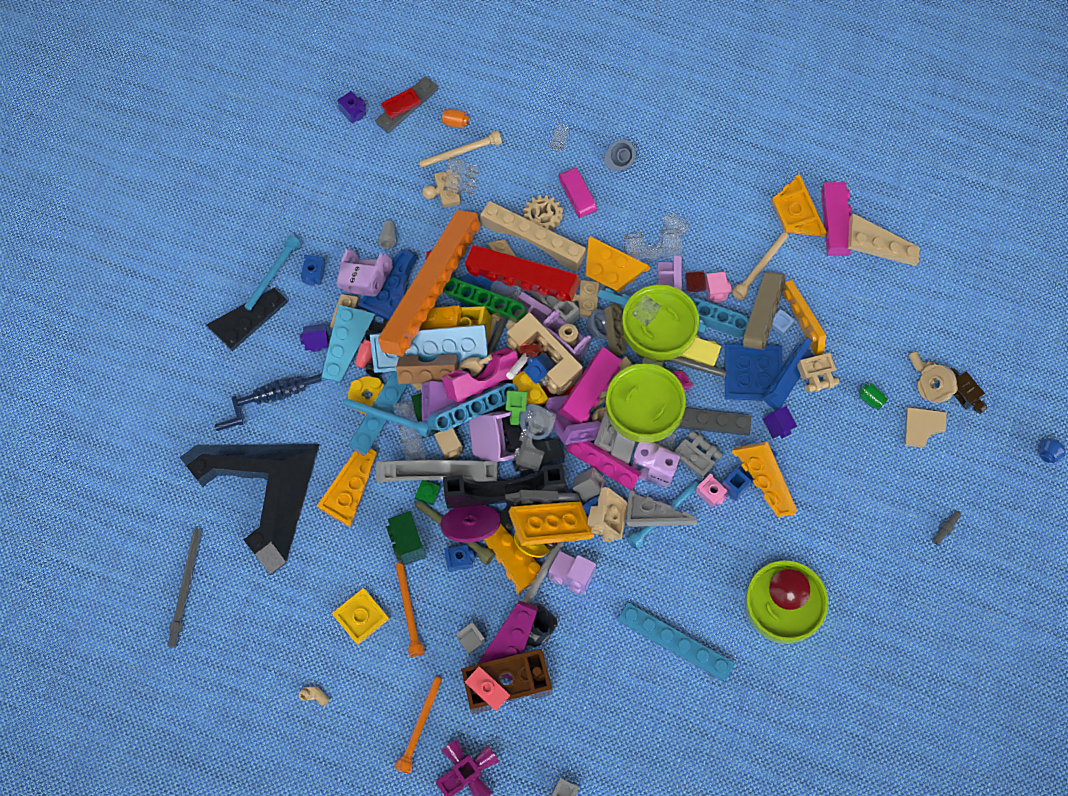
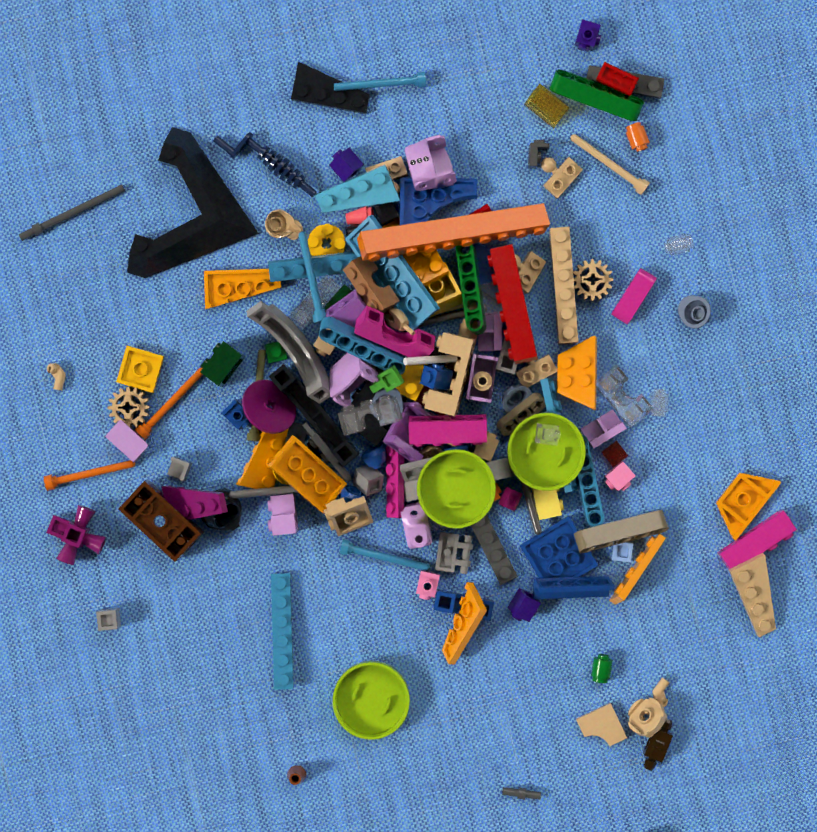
camera: 55 degrees right, 20 degrees up
(317, 266) = (414, 116): blue brick -> none
(325, 418) = (282, 224): none -> tan hair
(381, 656) = (129, 399): none -> tan gear
(383, 166) = (546, 106): none -> clear yellow brick
(387, 237) = (482, 157): light grey cone -> none
(401, 126) = (596, 95): none -> green beam
(413, 196) = (534, 156): none -> dark grey bracket
(415, 667) = (127, 441): none -> lavender panel
(455, 174) = (577, 178): clear plate -> none
(487, 689) = (141, 512): coral plate -> none
(531, 350) = (441, 362): clear red plate -> none
(573, 465) = (374, 456): none -> blue cone
(654, 513) = (373, 543): light grey wing -> none
(741, 291) = (631, 498): tan piece -> none
(789, 589) = (381, 697): dark red dish -> none
(813, 717) = (296, 770): none -> dark orange cone
(818, 366) = (596, 606): tan plate -> none

